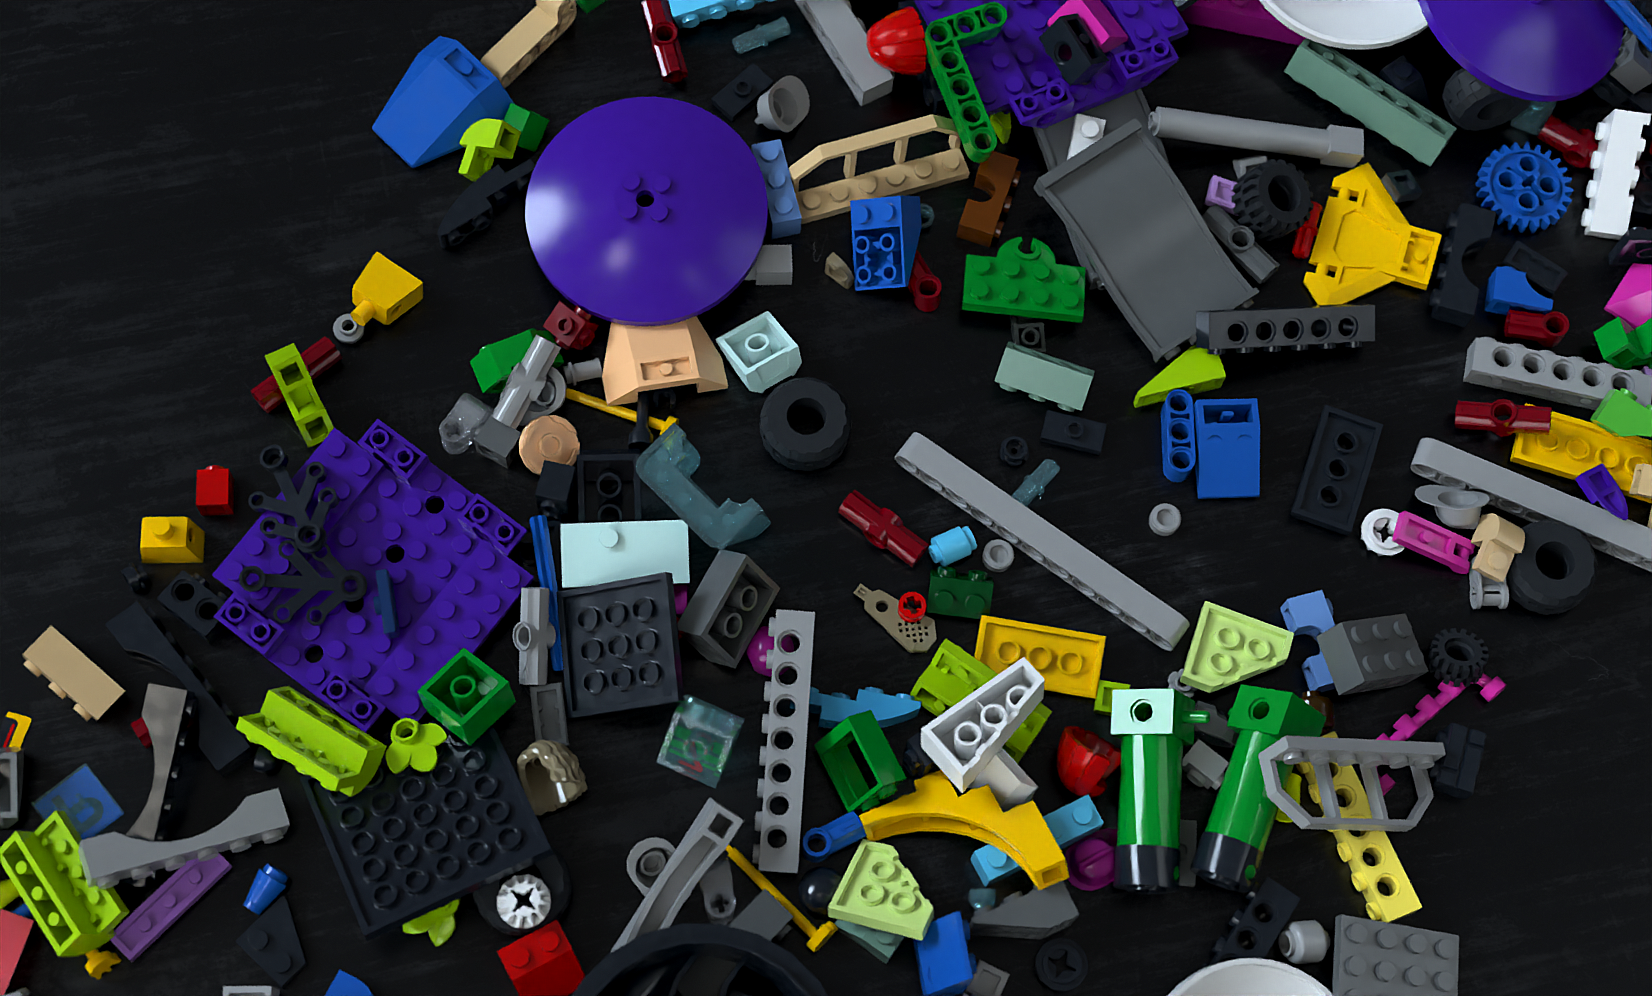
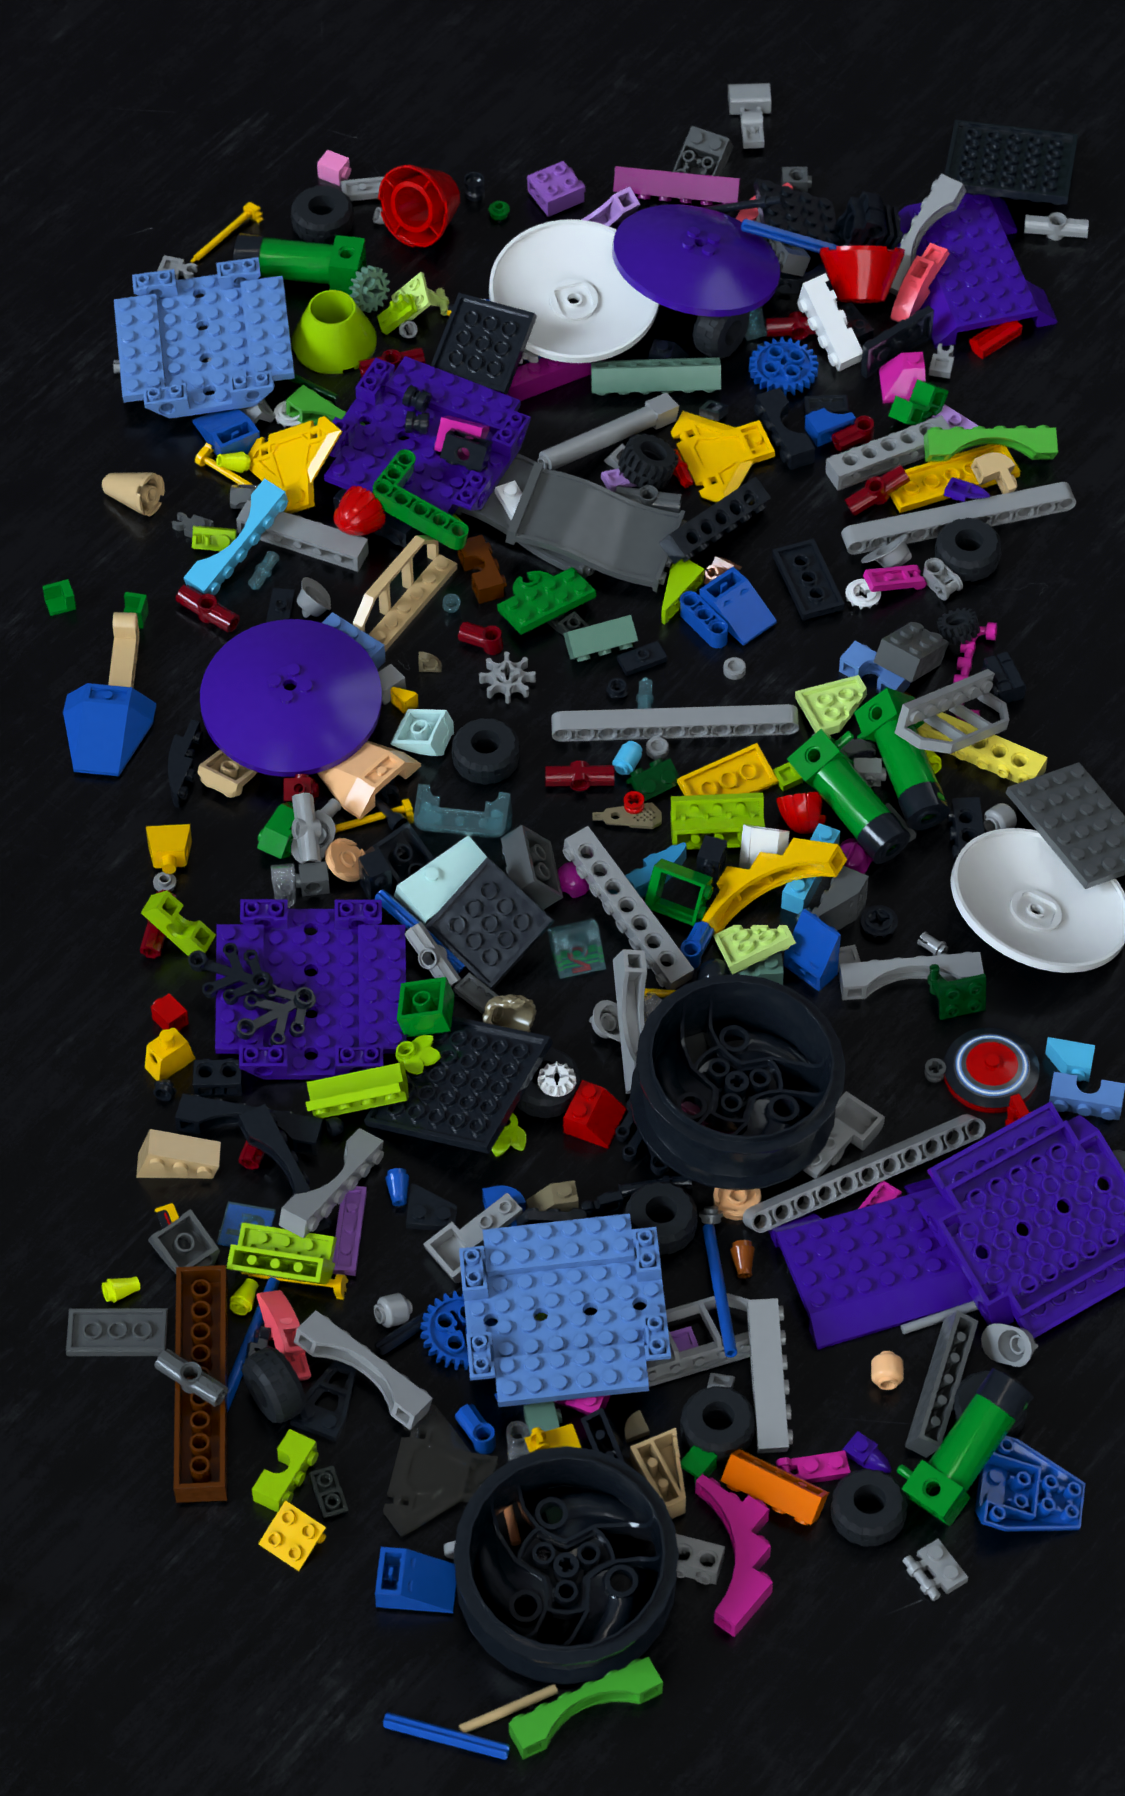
camera: 30 degrees left, 15 degrees down
(386, 604) = (334, 992): dark blue plate -> none
(483, 143) = (154, 727): lime brick -> none
(510, 248) = (224, 774): none -> tan slope
(529, 123) = (167, 708): green panel -> none
(775, 299) = (404, 699): none -> yellow slope
(884, 240) = (443, 627): blue slope -> none
(910, 359) = (516, 675): none -> light grey gear
(981, 723) = (731, 816): white wedge -> none
(1248, 386) = (718, 567): none -> nougat bracket
(1498, 544) = (930, 552): tan brick -> none

